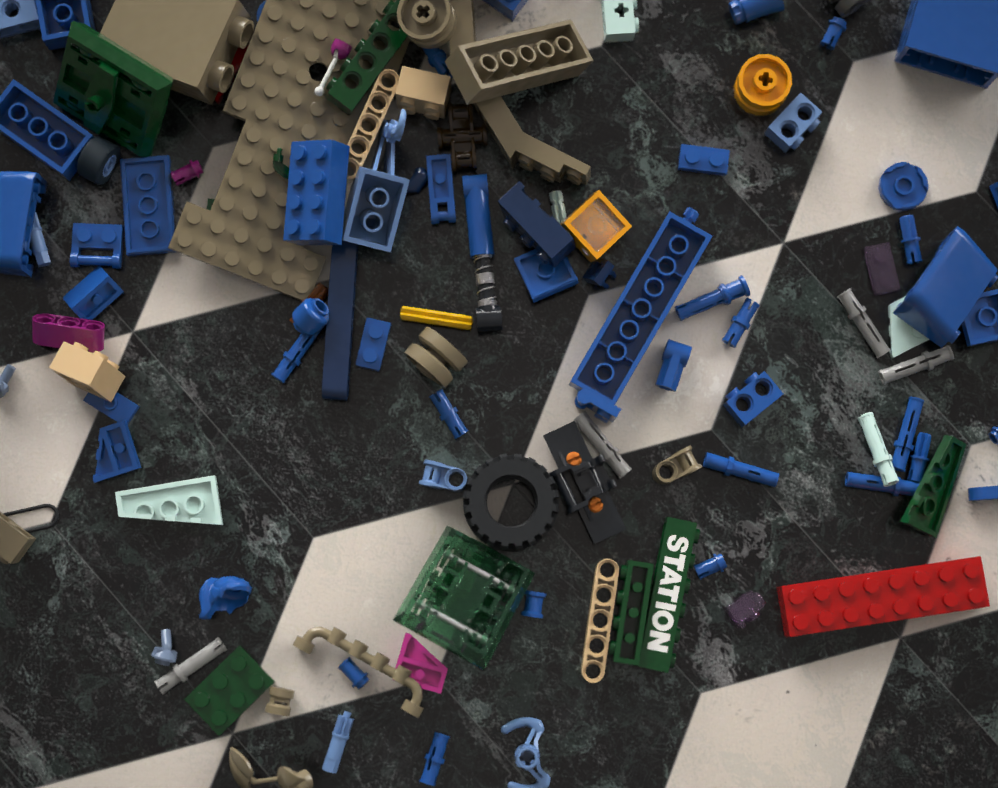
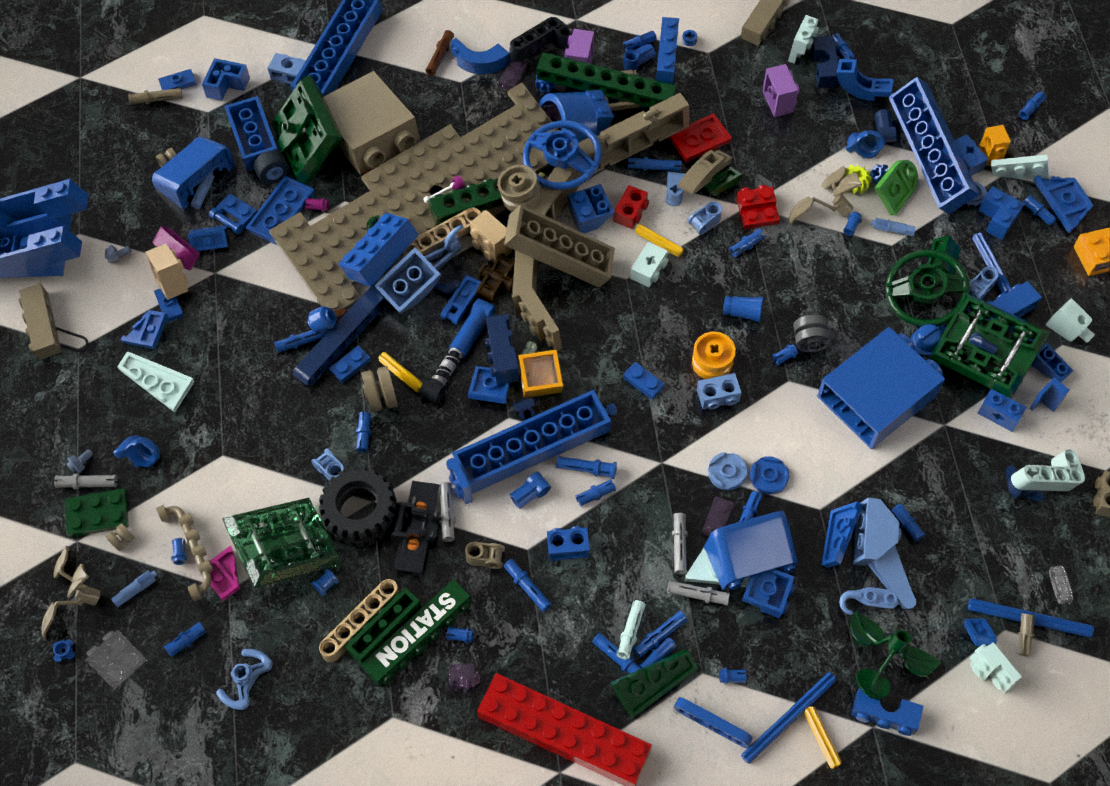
camera: 40 degrees right, 20 degrees down
(858, 209) = (727, 471): none -> medium blue tile

